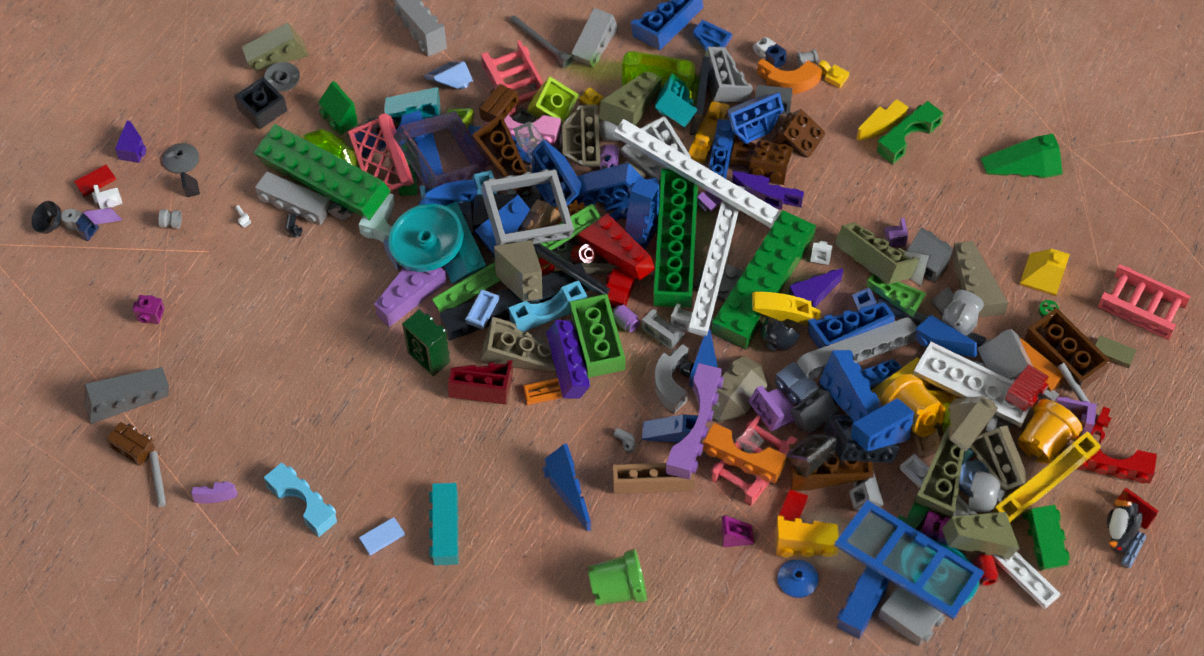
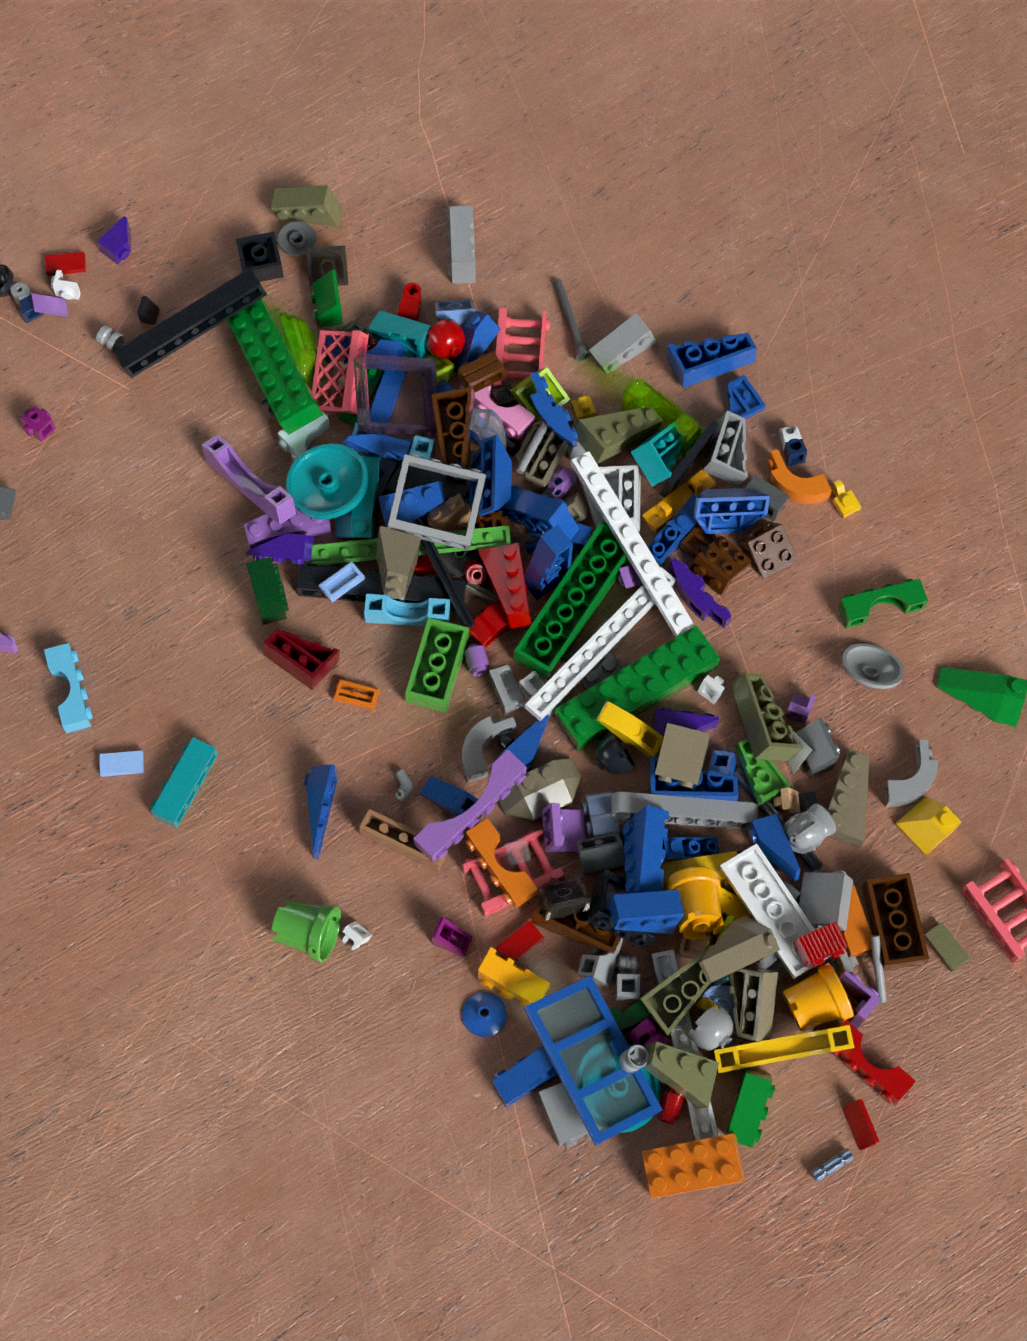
camera: 25 degrees right, 10 degrees up
(185, 162) = (159, 284): dark grey dish -> none
(235, 173) = (190, 323): none -> black brick
(244, 220) = (179, 372): white hand -> none
(291, 228) = (217, 402): black arm -> none
(293, 198) = (234, 372): light grey brick -> none
(315, 83) = (323, 260): none -> clear smoke slope
(326, 264) = (271, 499): none -> medium lavender arch
(404, 80) = (410, 302): none -> red piece
(427, 300) = (287, 546): none -> dark purple slope
(454, 94) = (445, 339): none -> red cylinder
(476, 84) = (478, 334): none -> blue slope
(508, 343) = (352, 635): dark tan wedge -> none
(568, 359) = (395, 675): dark purple brick -> none
(573, 141) = (532, 448): none -> light grey bar
(579, 109) = (555, 416): none -> blue slope
(659, 567) = (357, 934): none -> white tile
(812, 56) = (829, 469): light grey bush -> none
(834, 303) = (682, 755): none -> dark tan slope
(882, 120) = (862, 576): yellow slope -> none
(896, 495) = (627, 981): none -> light grey brick
(931, 304) = (788, 801): none -> light nougat tile
(932, 178) = (872, 666): none -> light grey dish
(941, 541) = (639, 1058): none -> light grey wheel
(964, 480) = (705, 1003): none -> yellow hand
(1013, 256) = (905, 792): none -> light grey arch
(1034, 600) = (693, 1166): none -> orange brick
(1046, 307) = (907, 865): green tile -> none
(1102, 421) = (885, 1015): red plate -> none
(1123, 524) = (835, 1135): animal -> none

